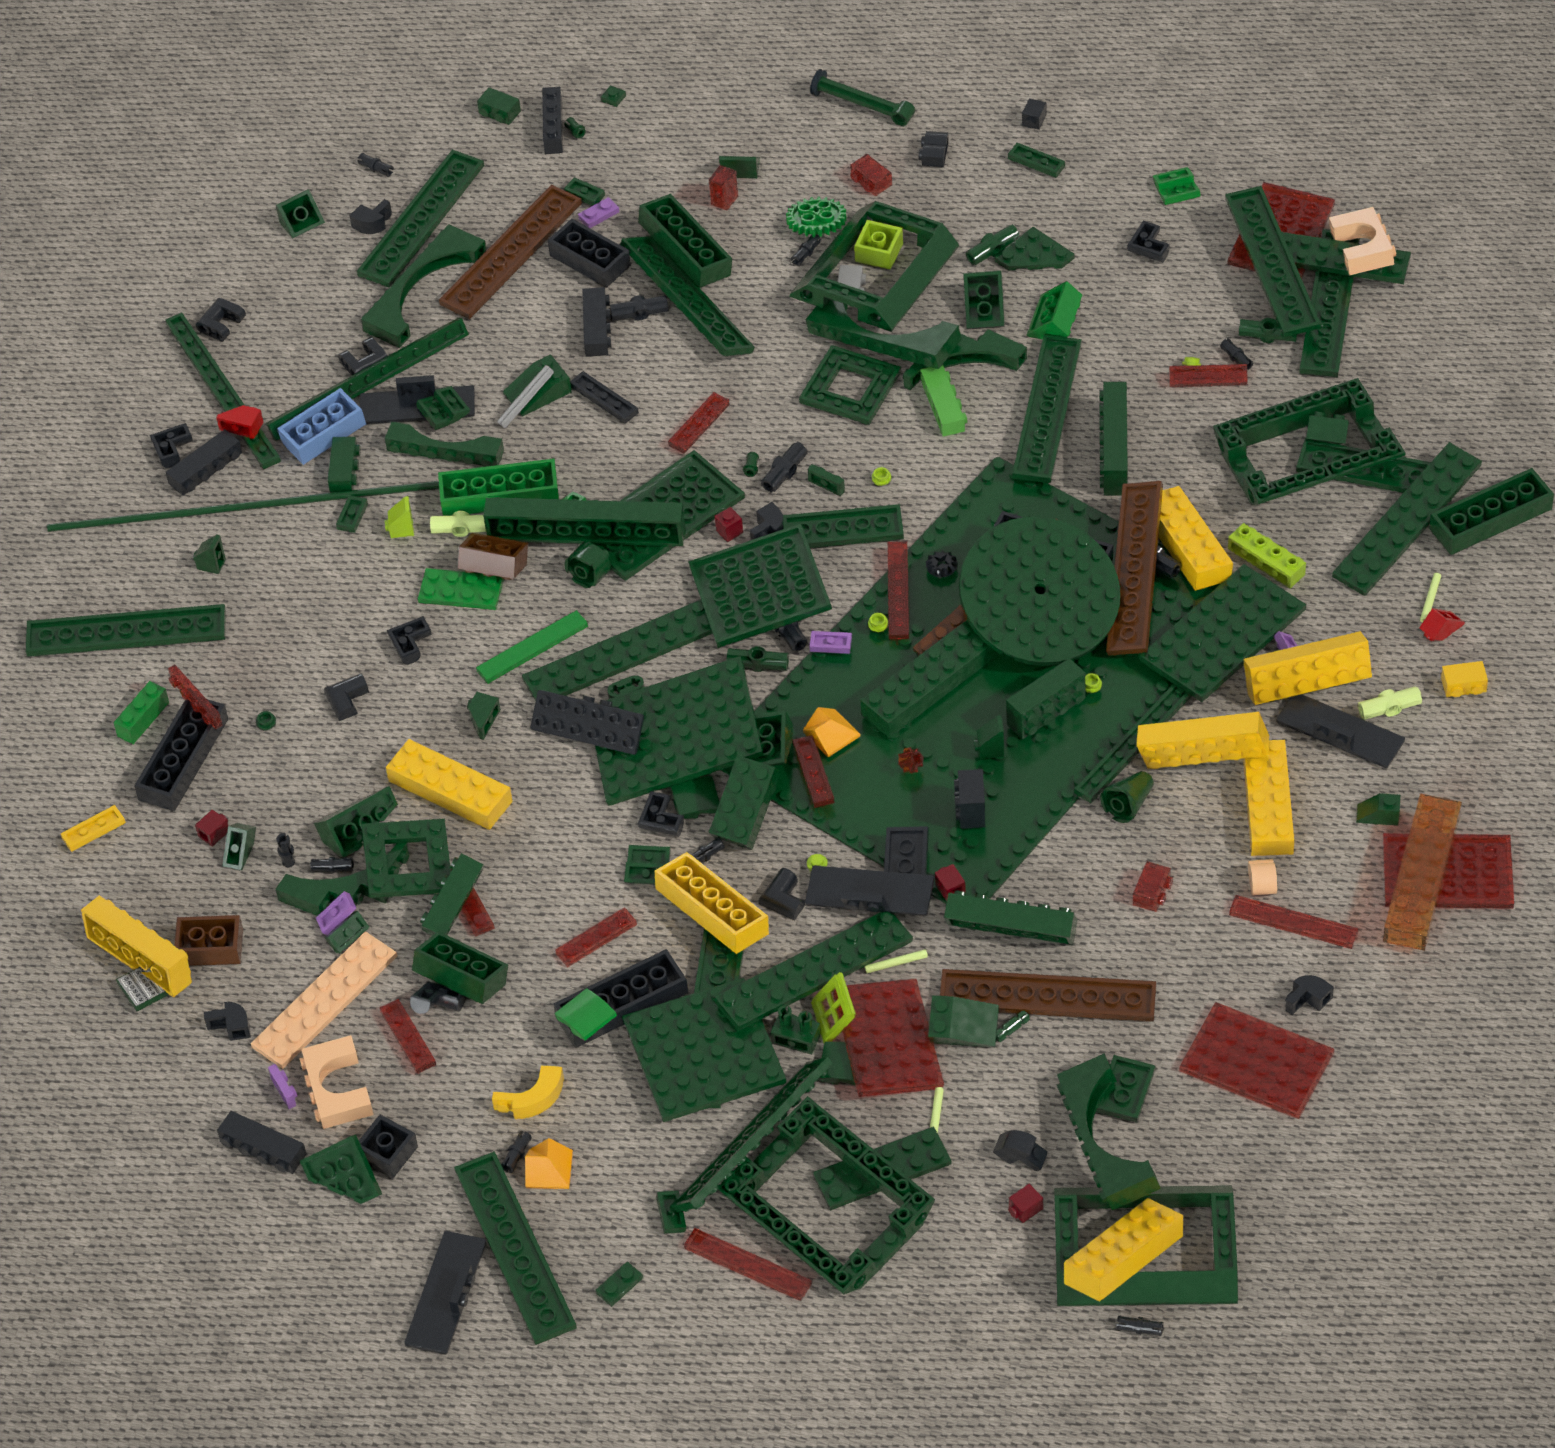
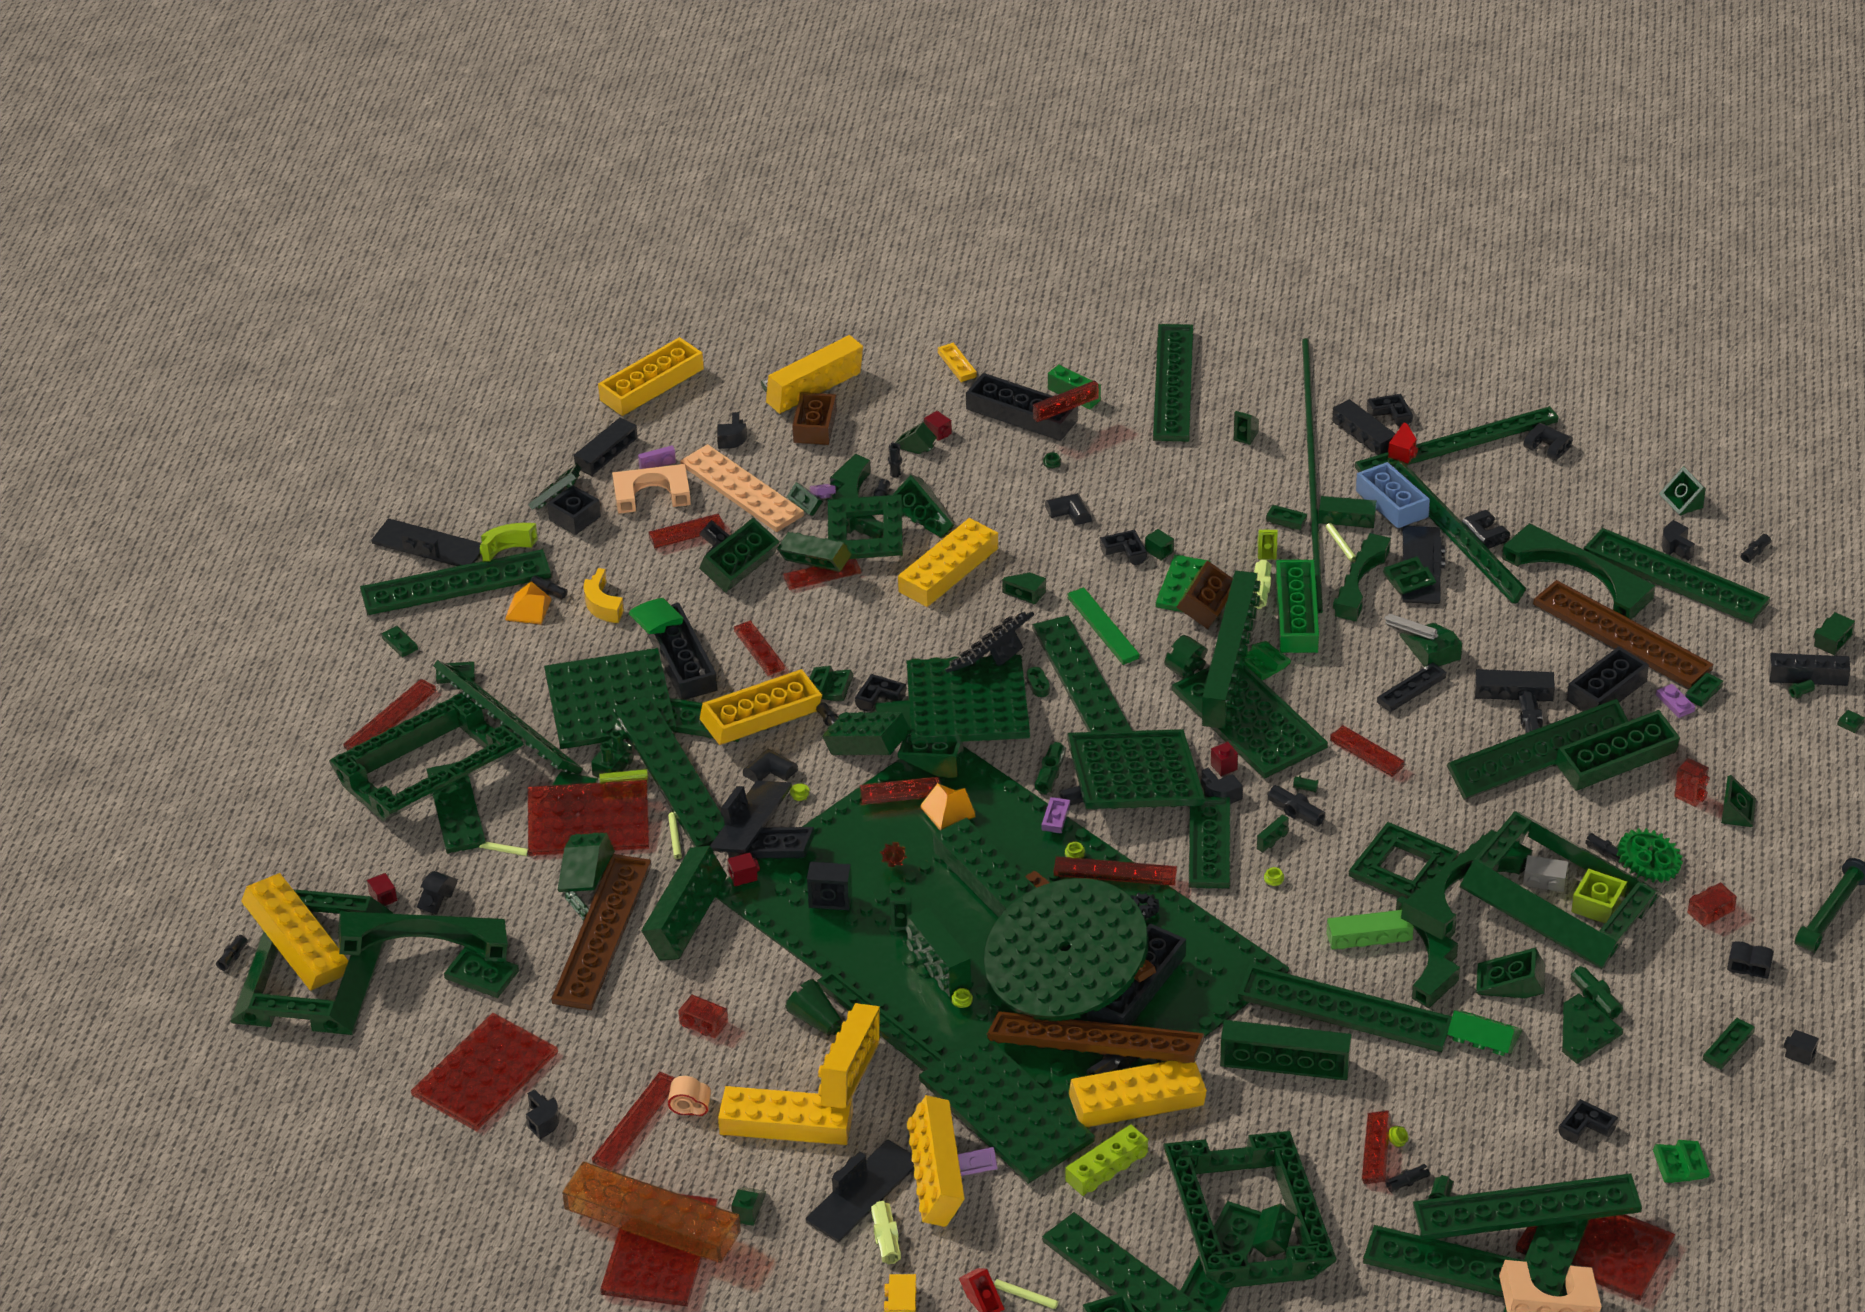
camera: 95 degrees right, 10 degrees down
(133, 1116) = (650, 376): none -> yellow brick
(385, 470) = (1340, 541): none -> yellowish green piece
(405, 610) = (1159, 544): none -> dark green brick
(431, 1197) = (507, 537): none -> lime arch

